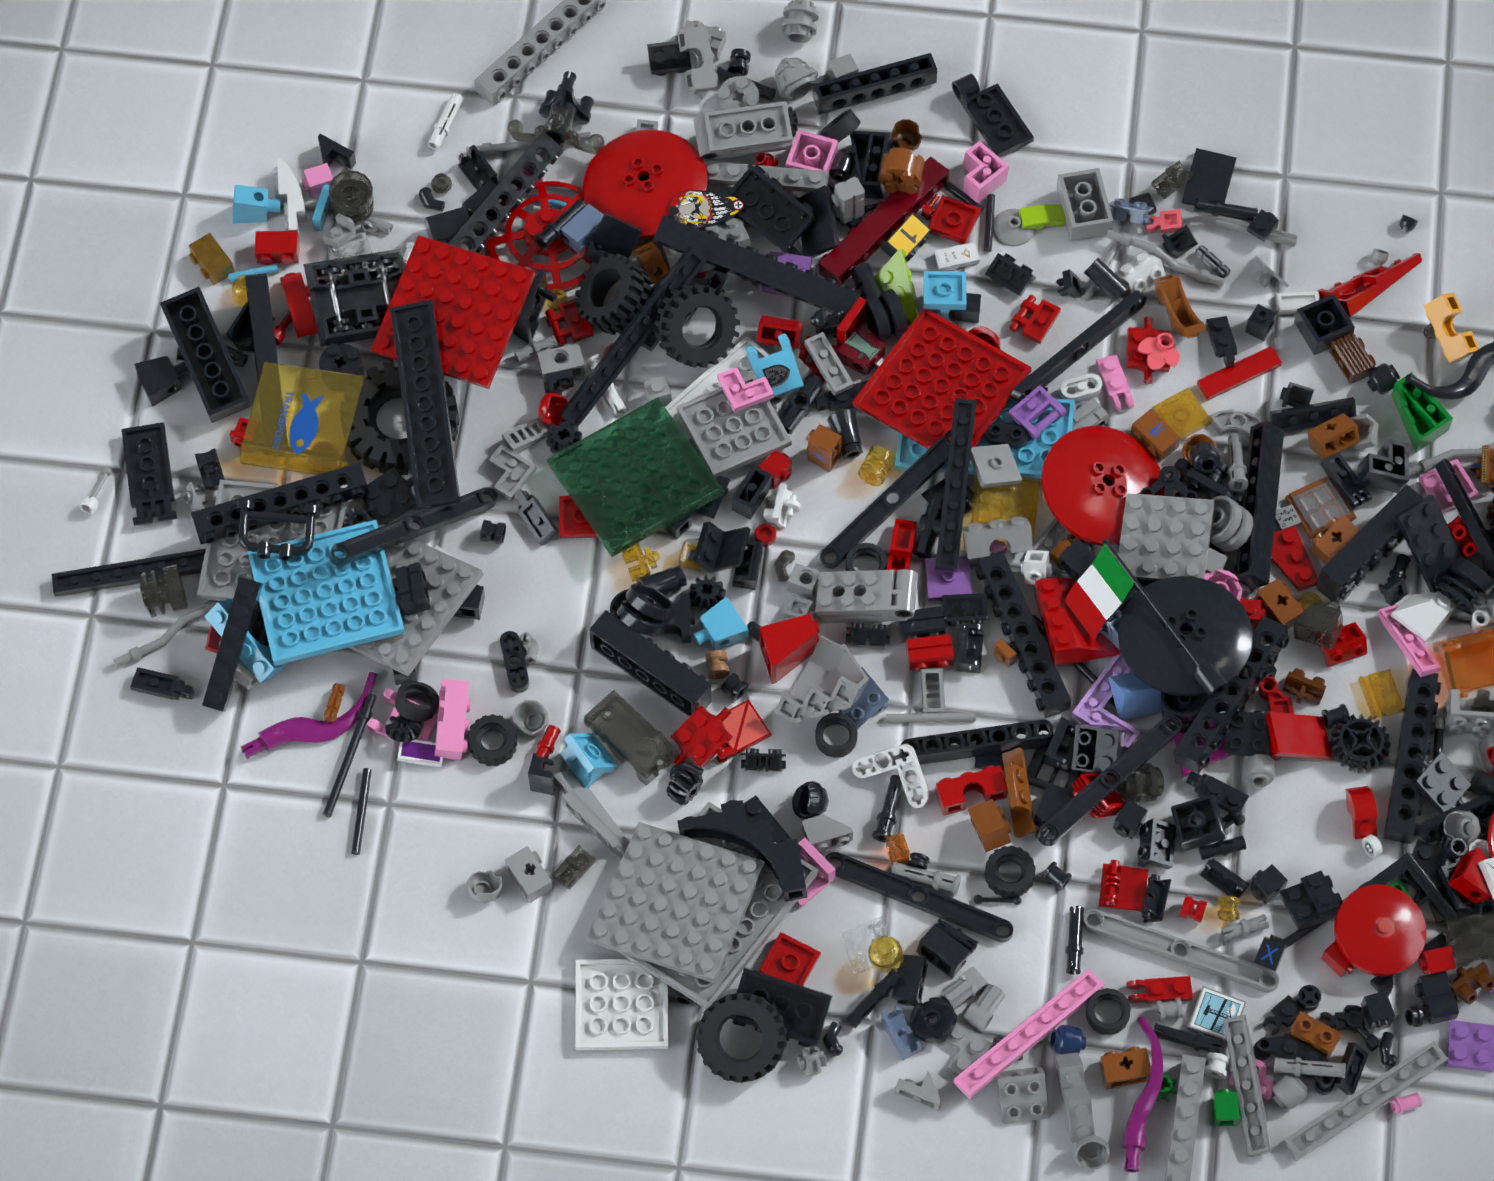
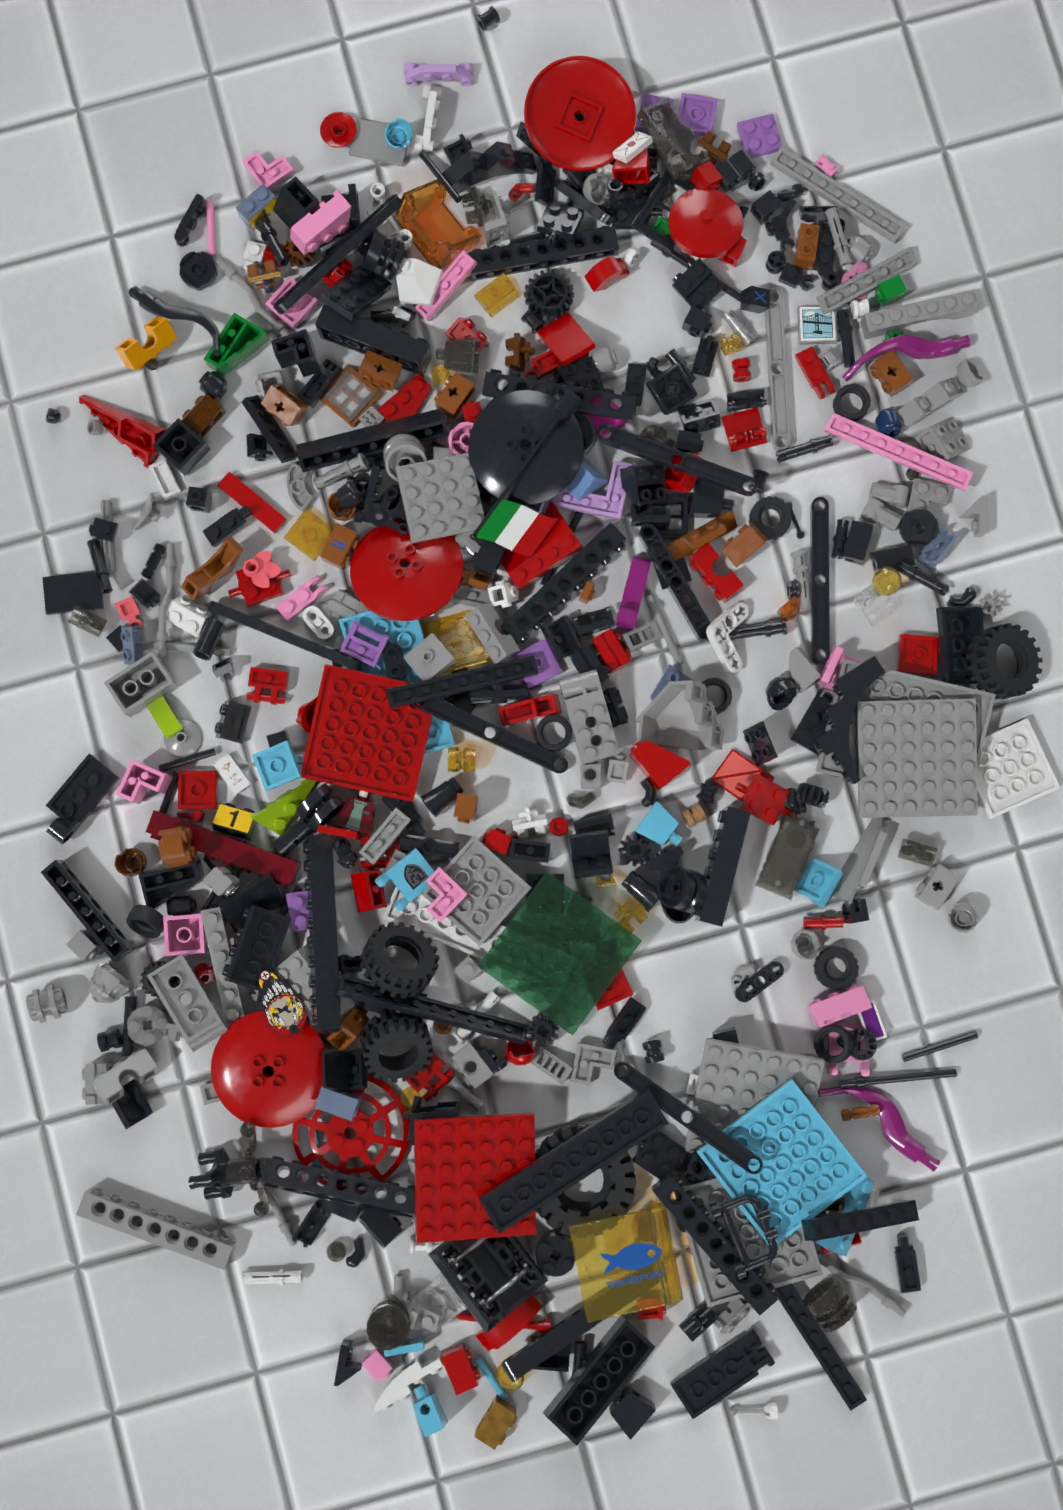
camera: 110 degrees left, 20 degrees up
(412, 589) = (750, 1090): black brick -> none
(553, 229) = (353, 1127): black pin -> none
(980, 696) = (633, 592): none -> magenta beam

